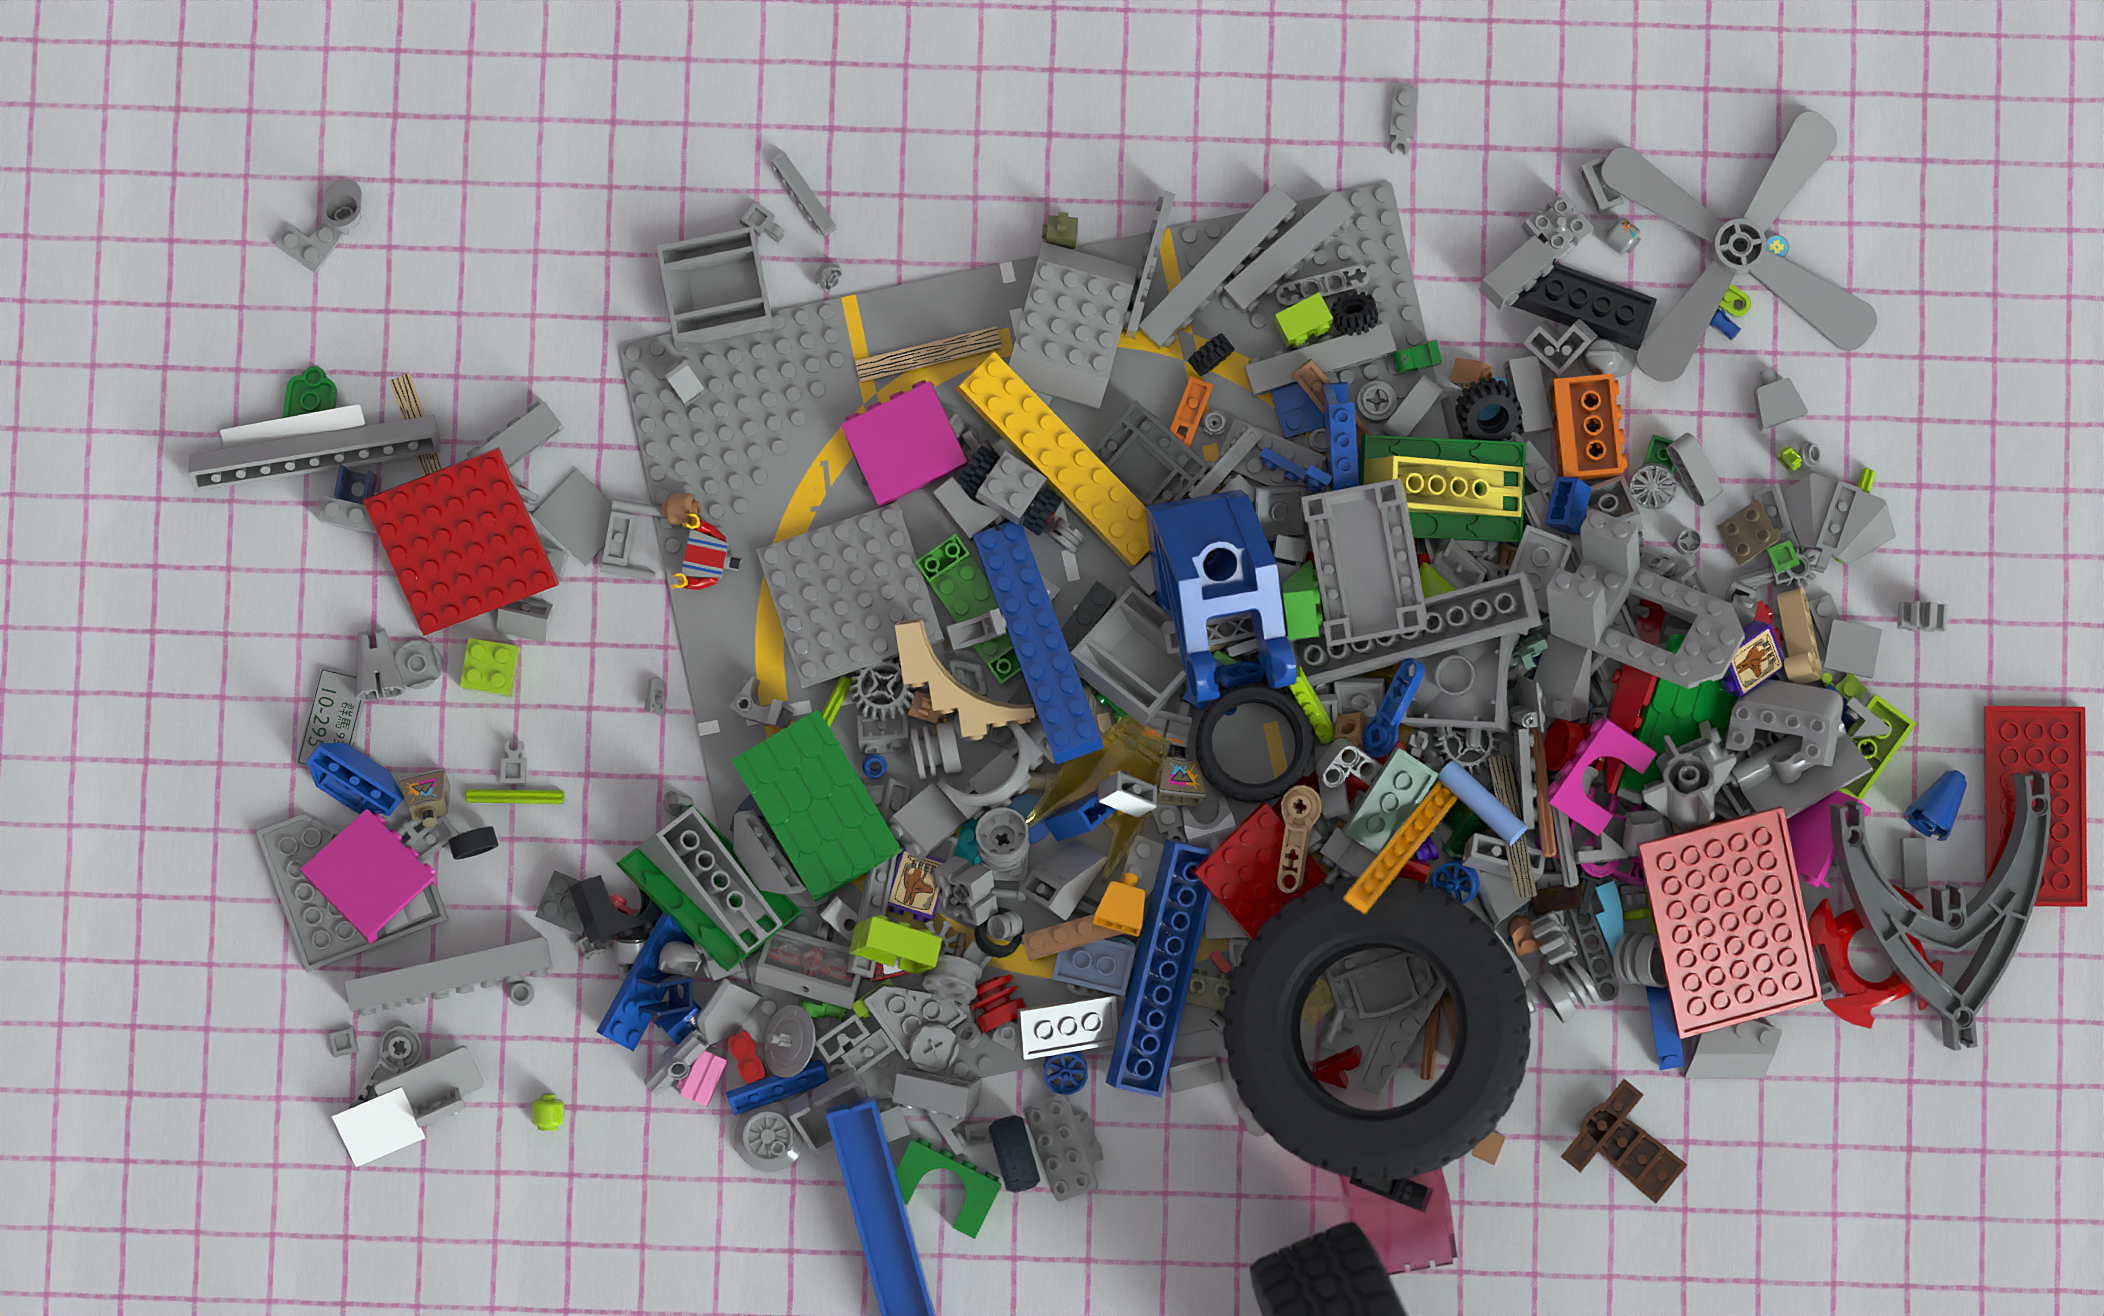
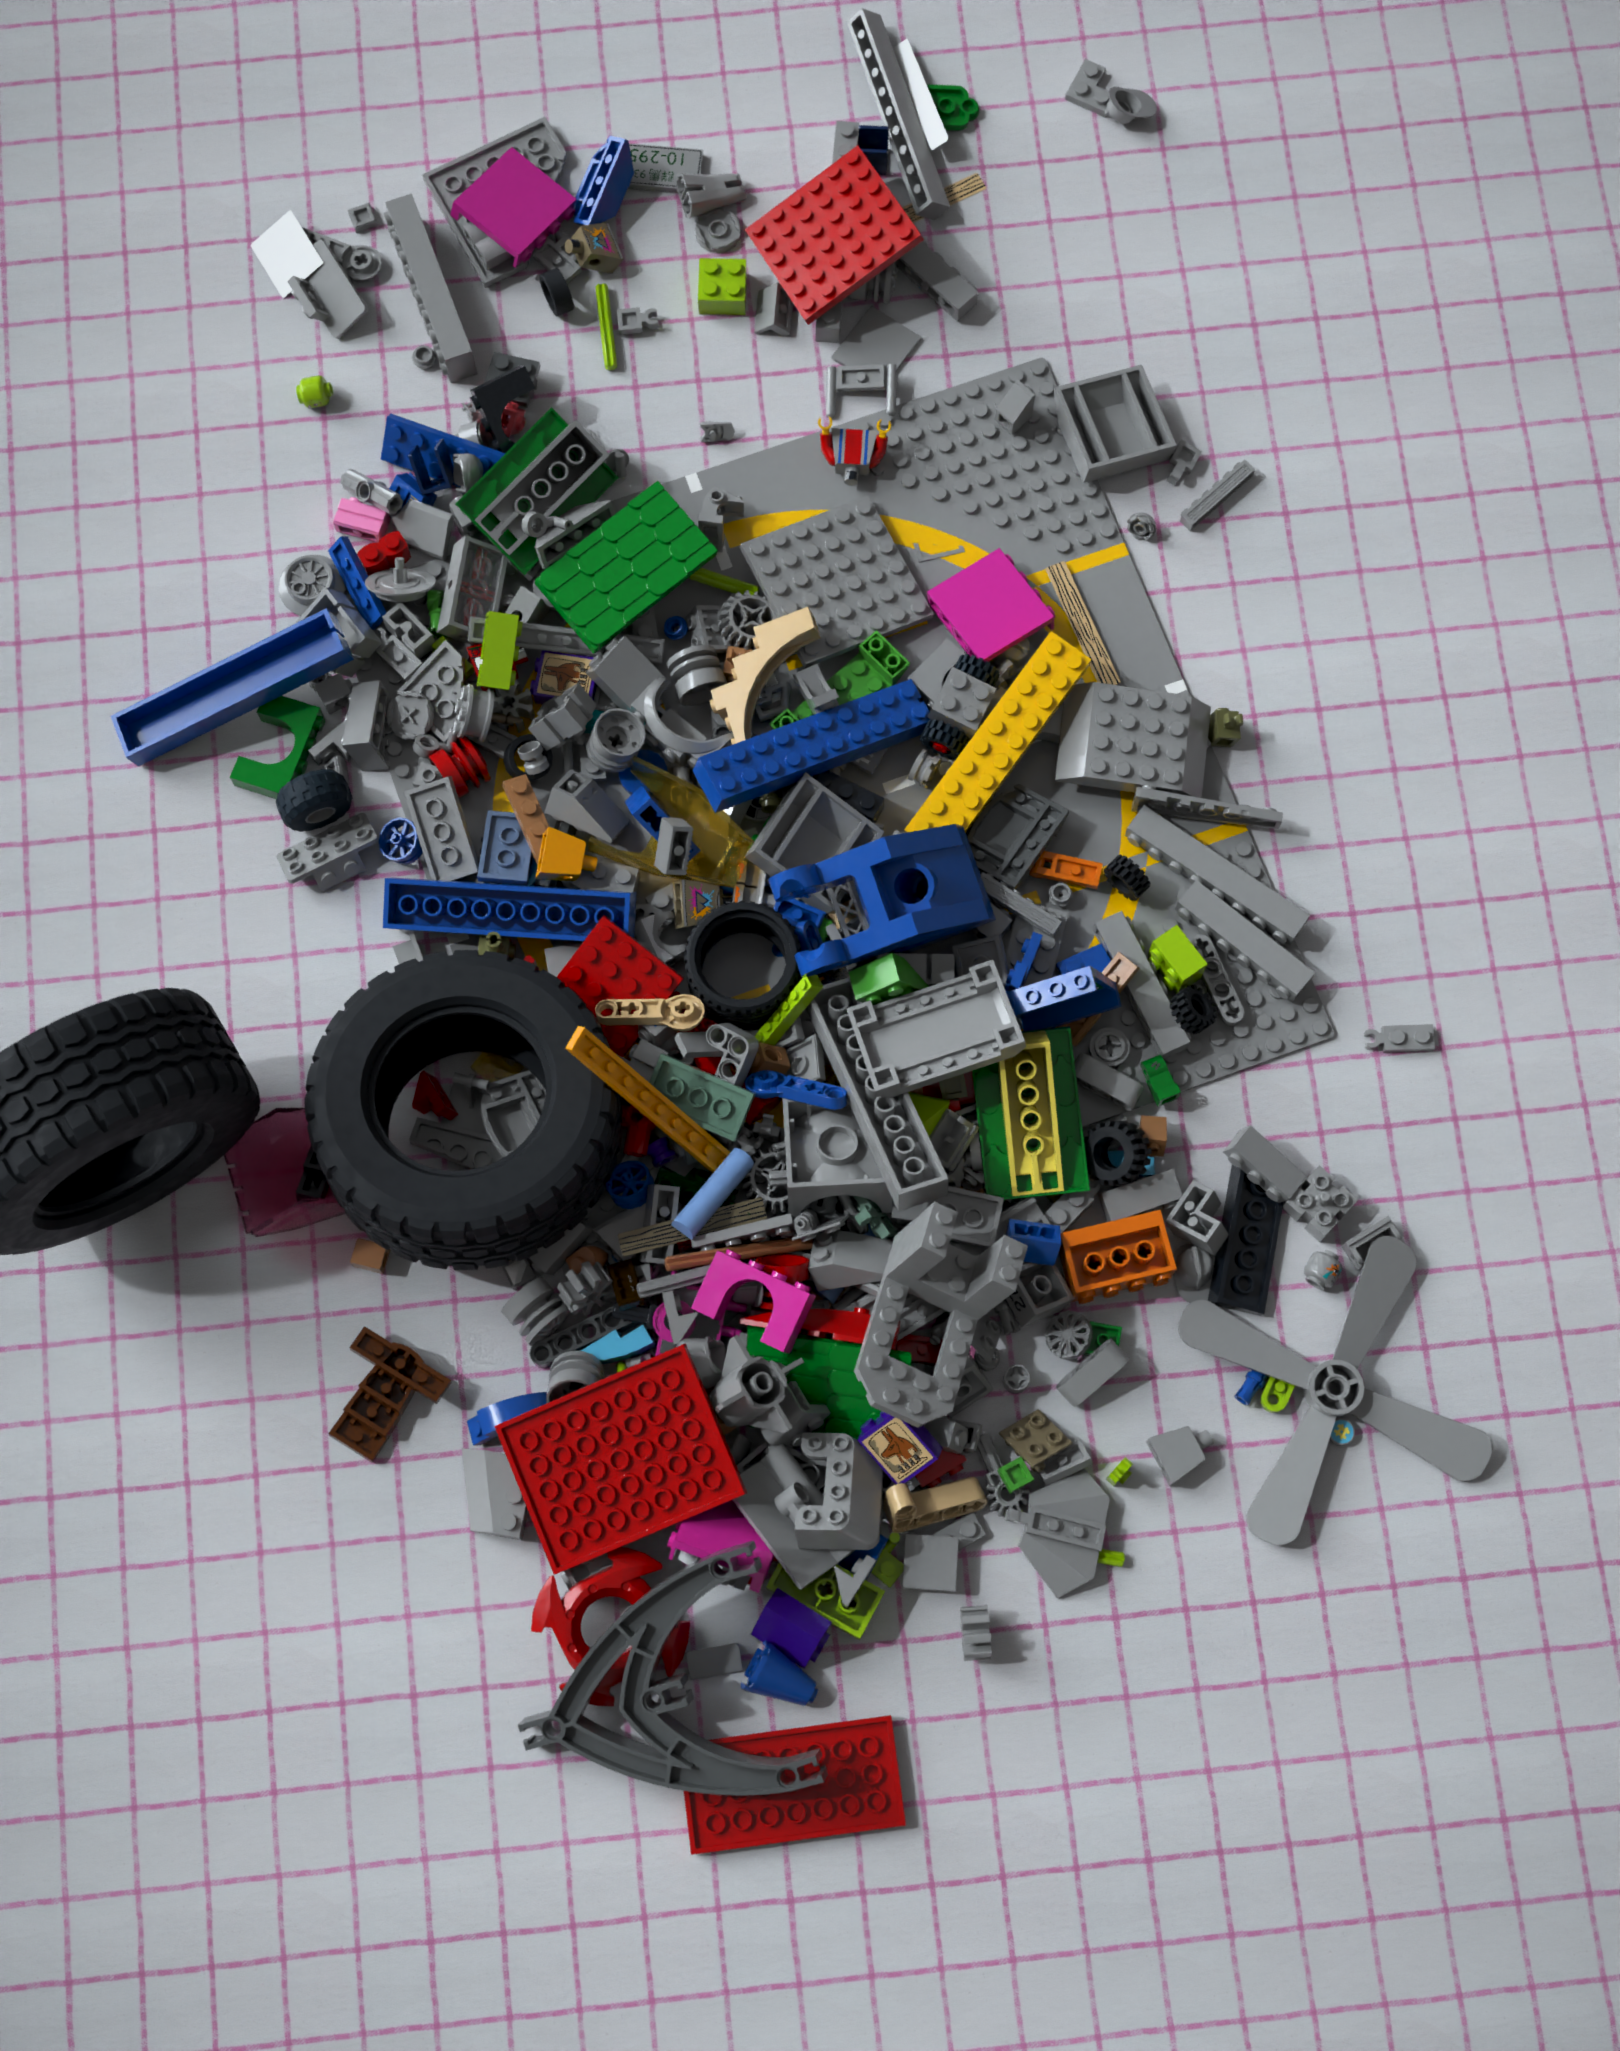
camera: 80 degrees right, 10 degrees down
(676, 507) = (900, 422): medium nougat head -> none
(759, 891) = (541, 523): none -> light grey plate
(1810, 454) = (1129, 1493): light grey plate -> none
(1898, 785) = (792, 1628): none -> dark purple brick

